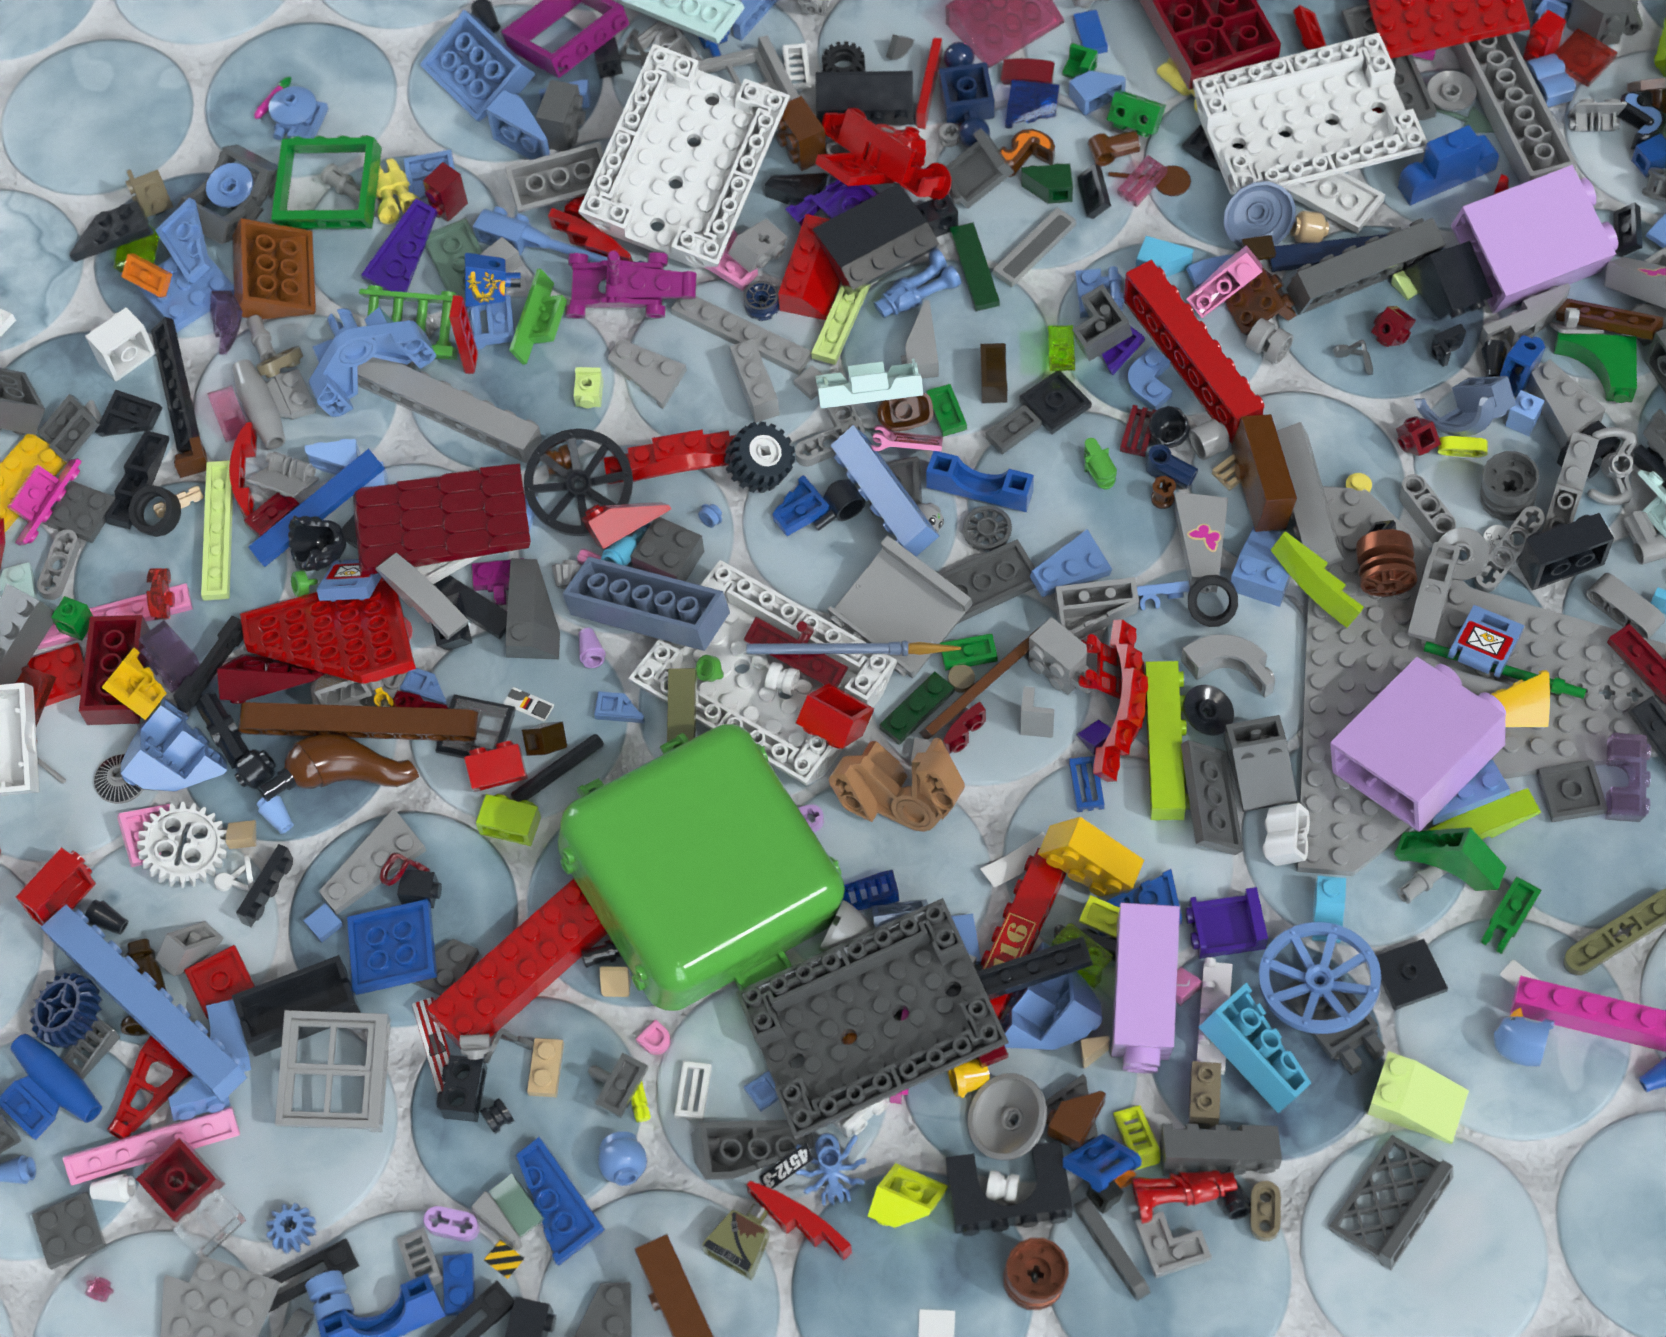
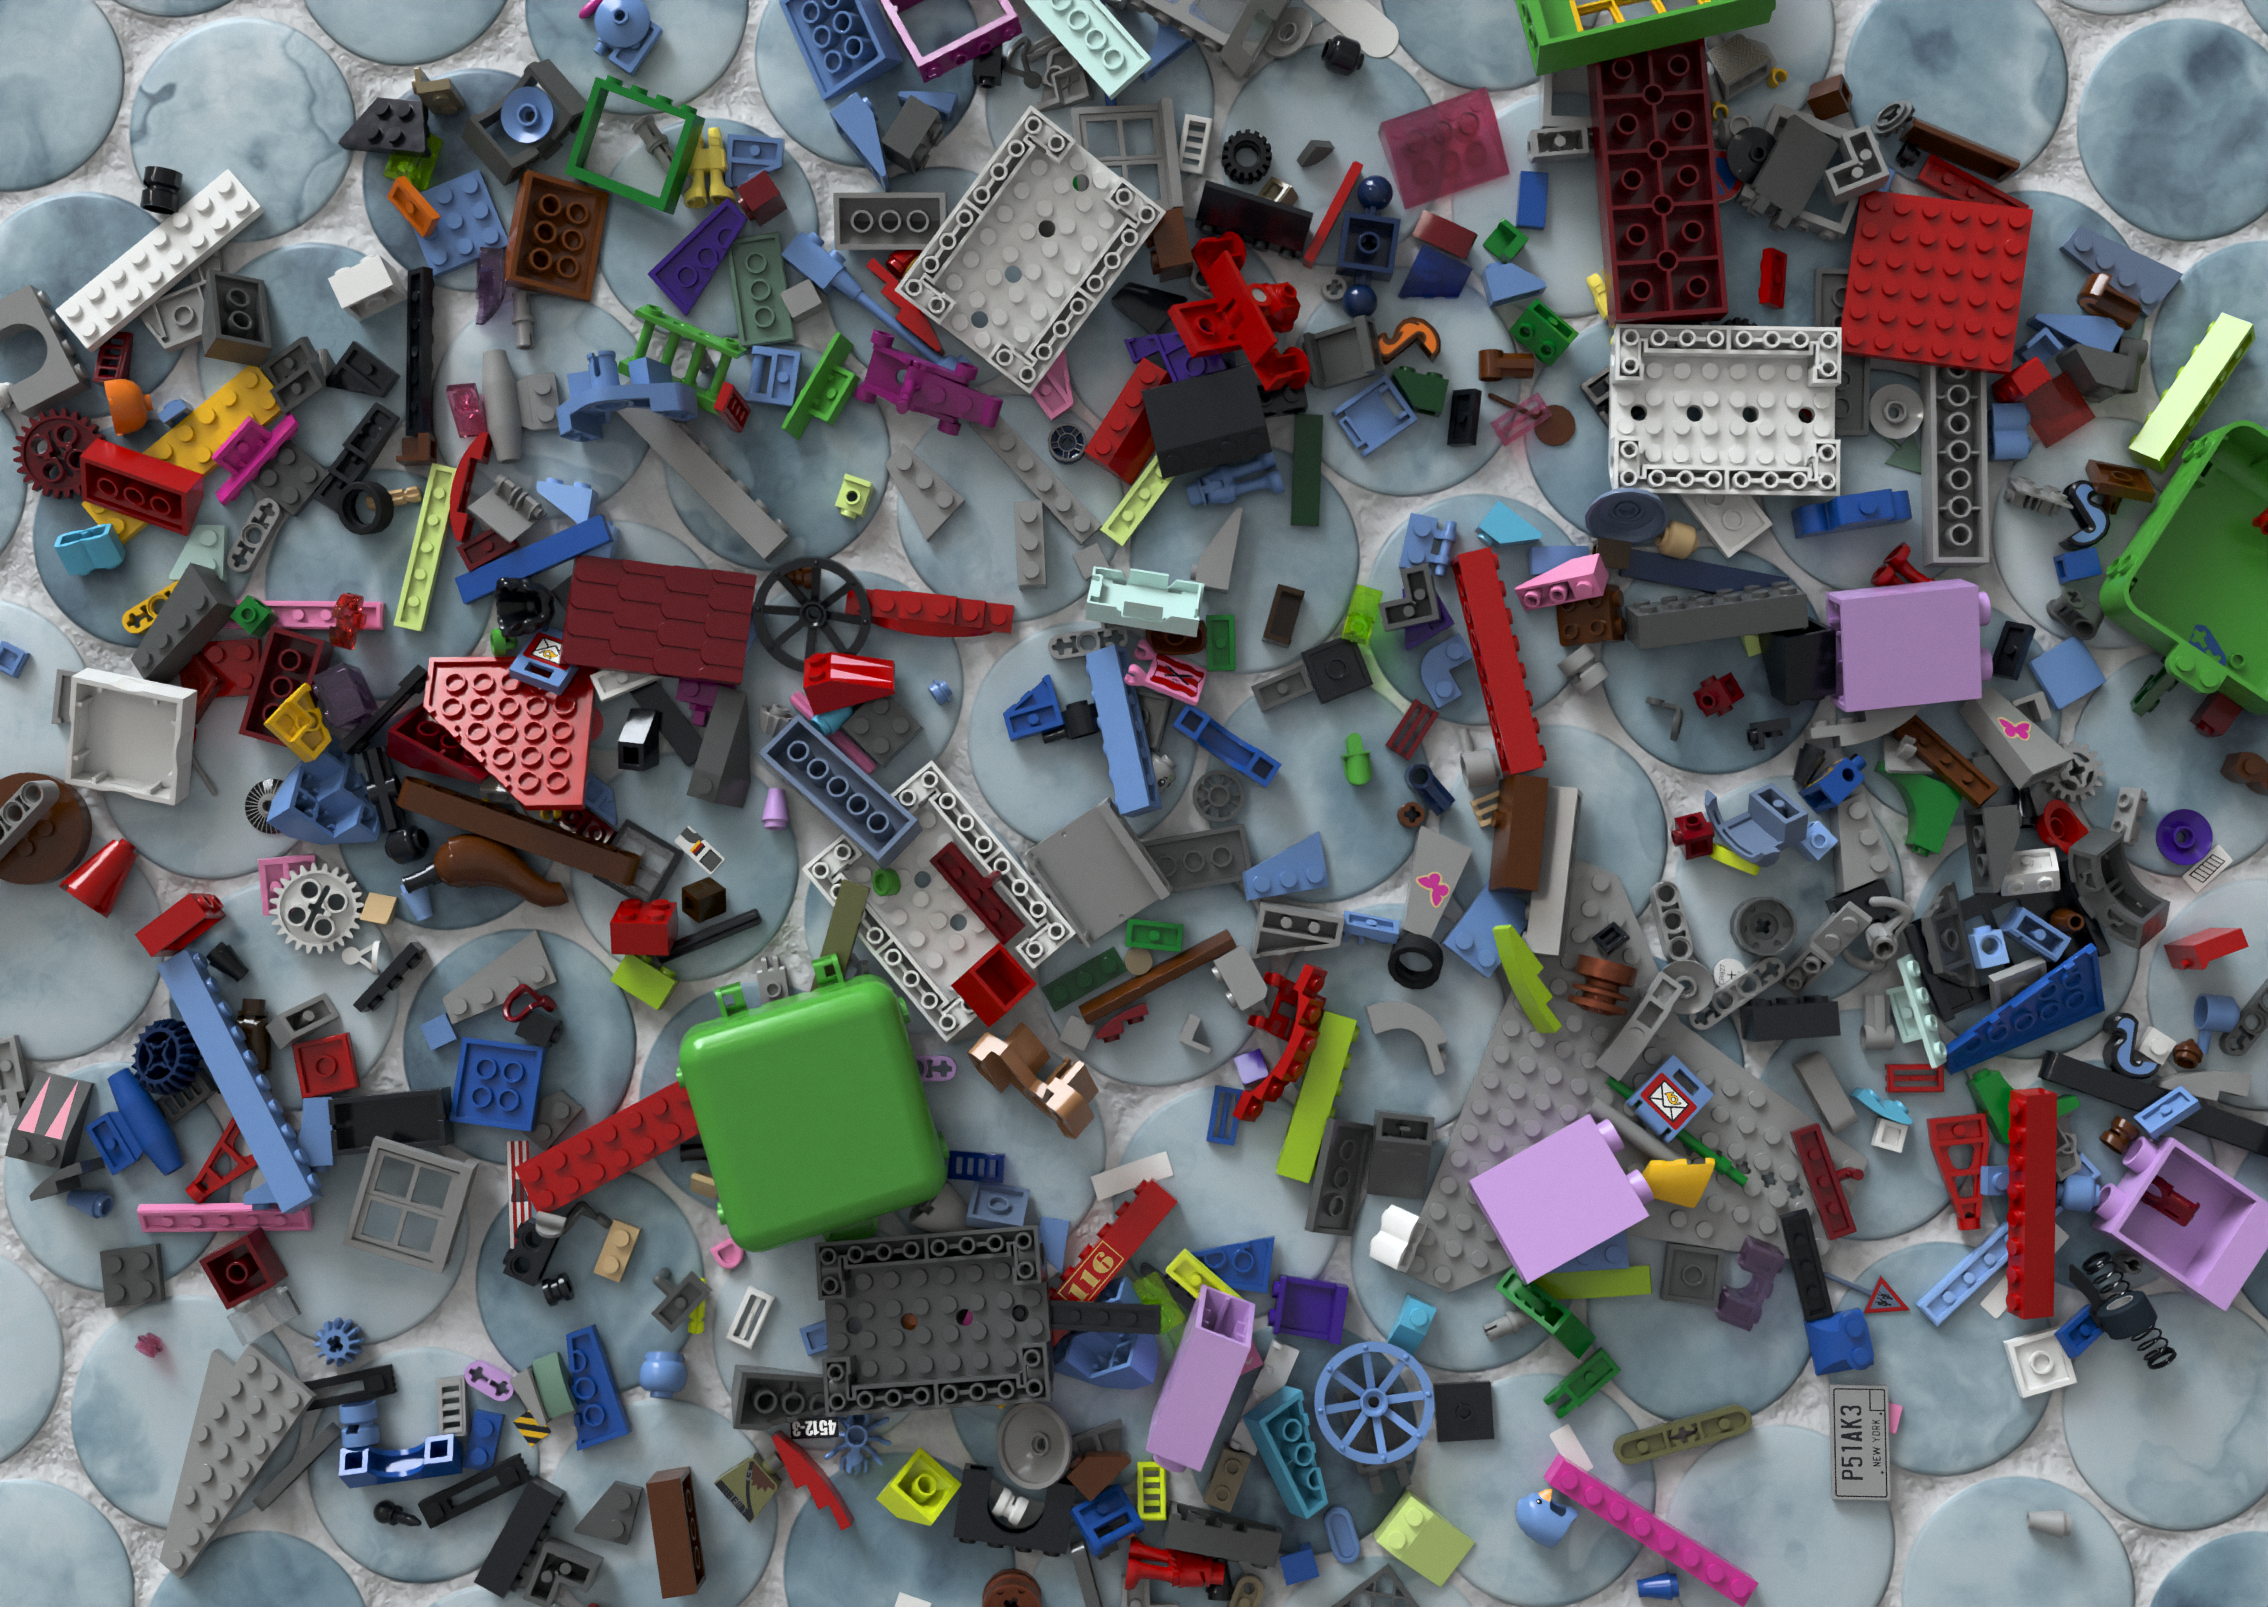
camera: 10 degrees right, 25 degrees up
(116, 1188) = (182, 1250): white cone -> none
(185, 240) = (463, 175): medium blue wing -> none
(272, 365) = (535, 359): dark tan plate -> none
(422, 595) = (613, 714): light grey slope -> none
(487, 279) = (778, 334): blue torso -> none
(616, 708) = (785, 884): medium blue tile -> none
(758, 245) = (1091, 369): light grey brick -> none
(759, 457) = (1007, 647): black wheel -> none
(782, 678) = (955, 917): white wheel -> none
(890, 648) = (1074, 922): sand blue piece -> none
(1013, 217) = (1369, 418): none -> medium blue container
(1034, 247) = (1378, 465): tile -> none
(1090, 857) = (1195, 1216): yellow brick -> none
(1093, 1048) = (1138, 1397): tan slope -> none
(1169, 426) = (1442, 742): black hair -> none
(1214, 703) = (1380, 1081): black dish -> none
(1306, 1155) = (1299, 1565): none -> blue panel
(1337, 1121) = (1342, 1534): none -> medium blue tile
(1359, 482) = (1614, 865): light yellow plate -> none

